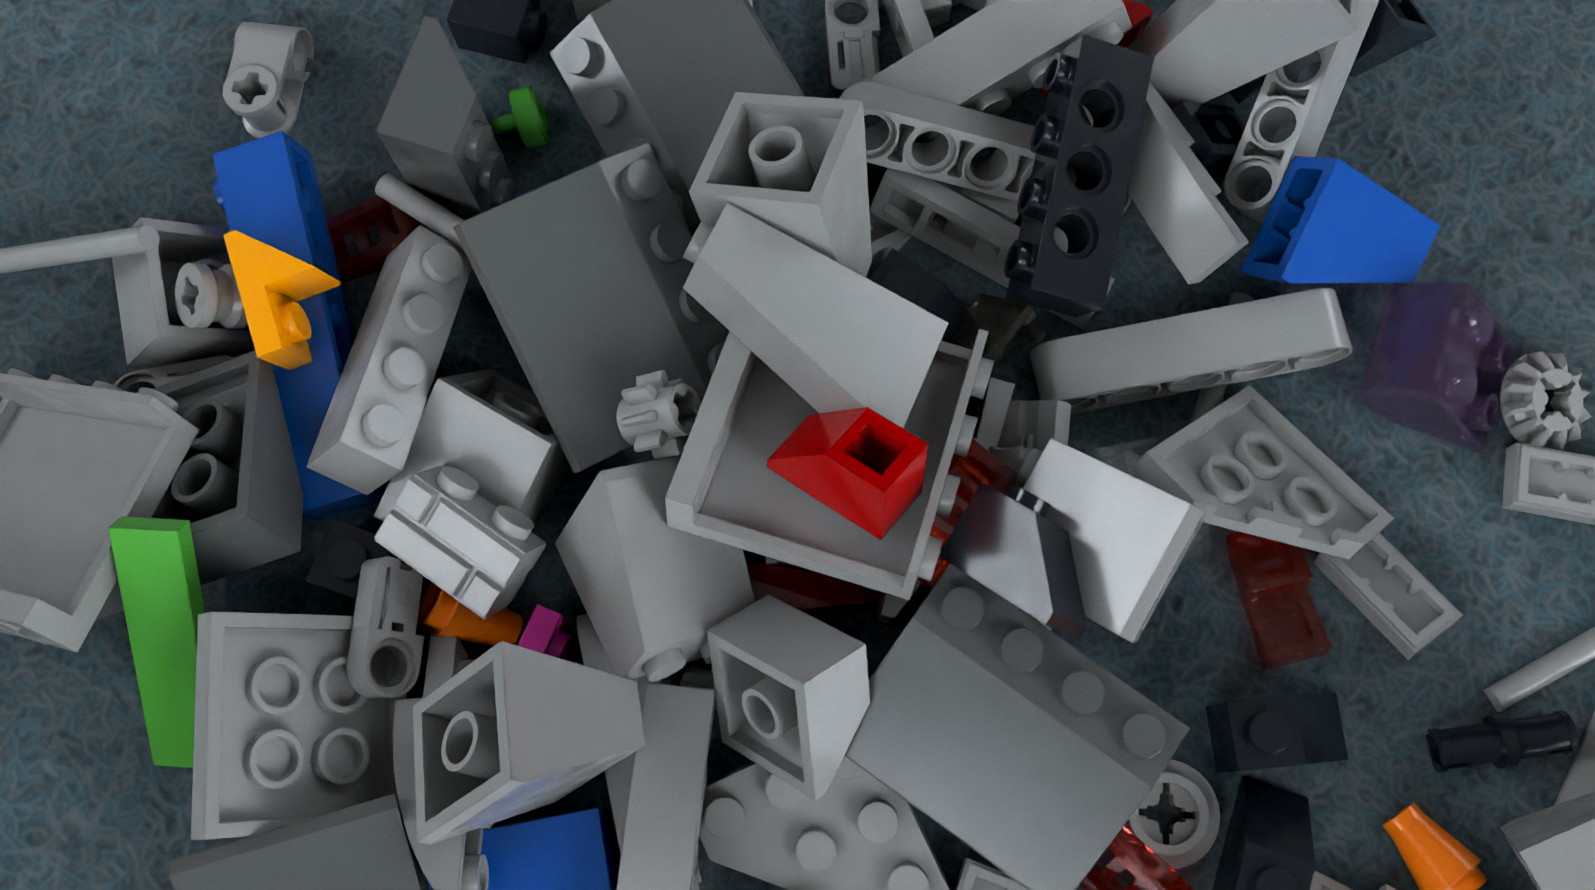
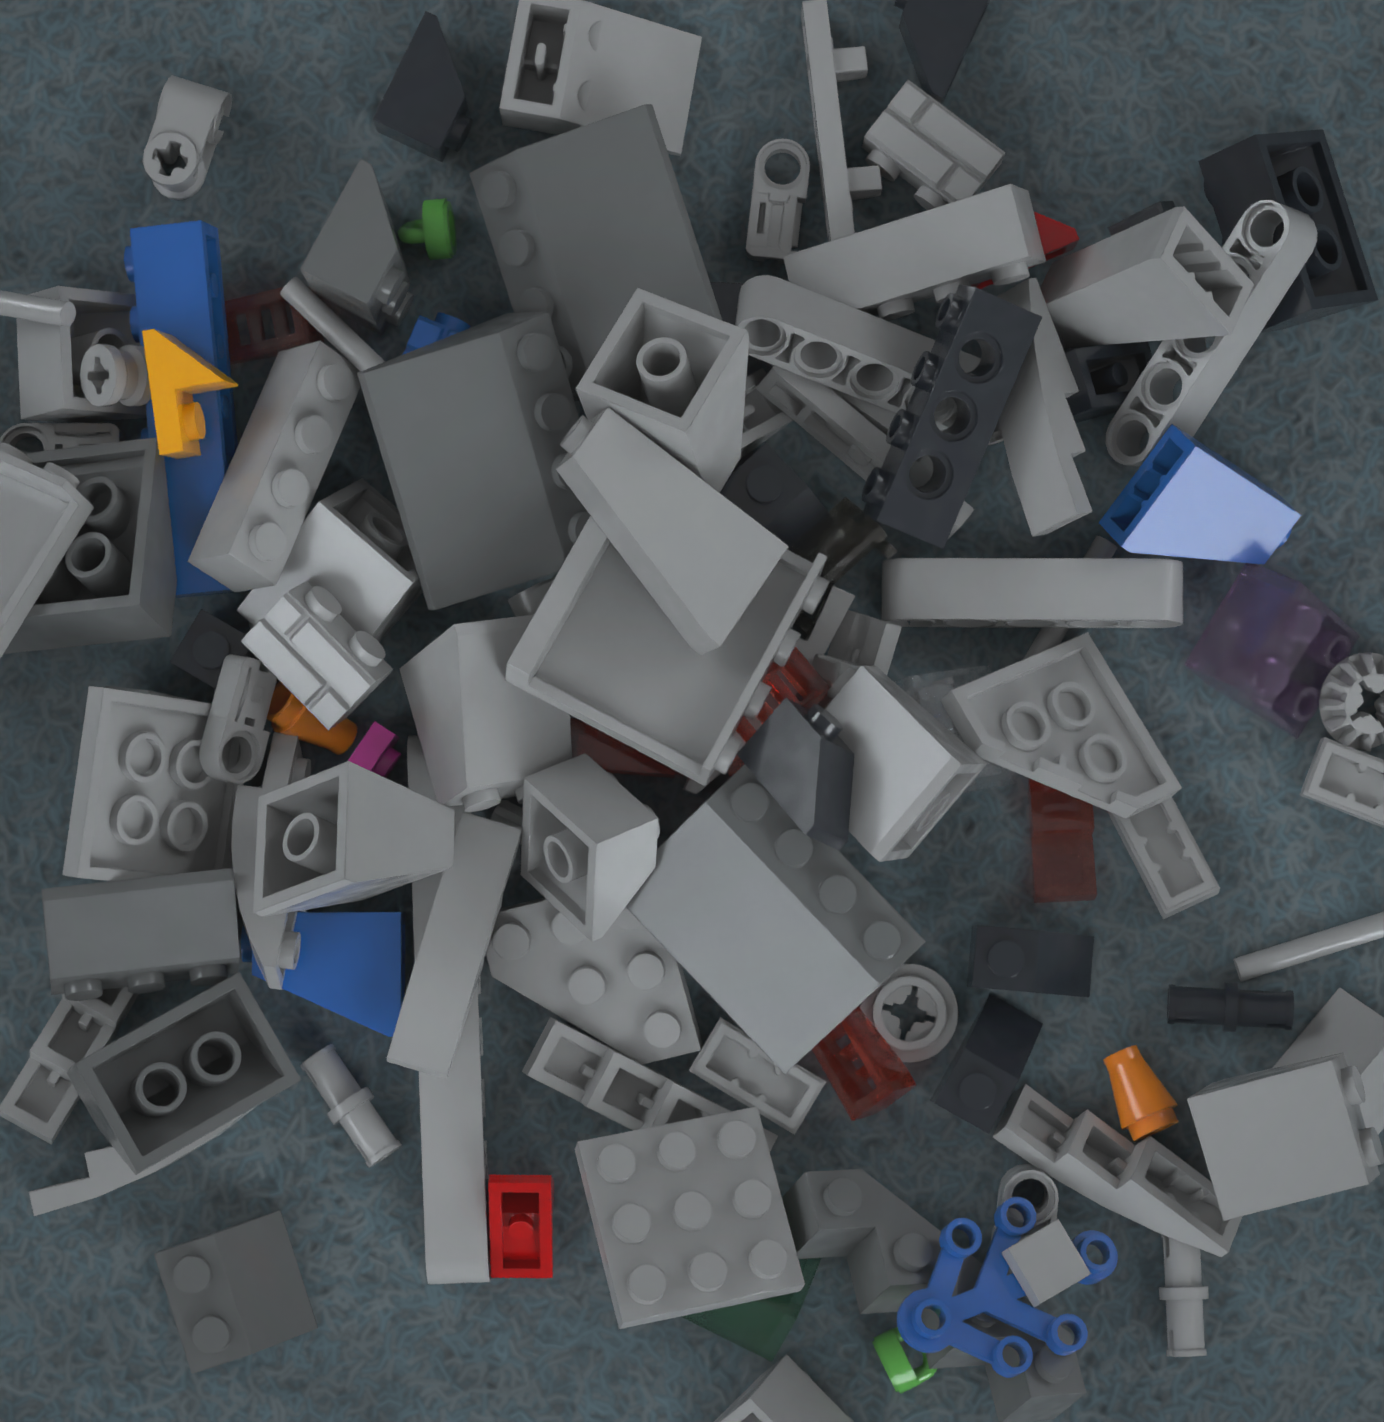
camera: 10 degrees right, 10 degrees up
(161, 613) = (45, 698): bright green tile -> none
(657, 414) = (514, 577): light grey gear -> none
(855, 466) = (676, 662): red slope -> none

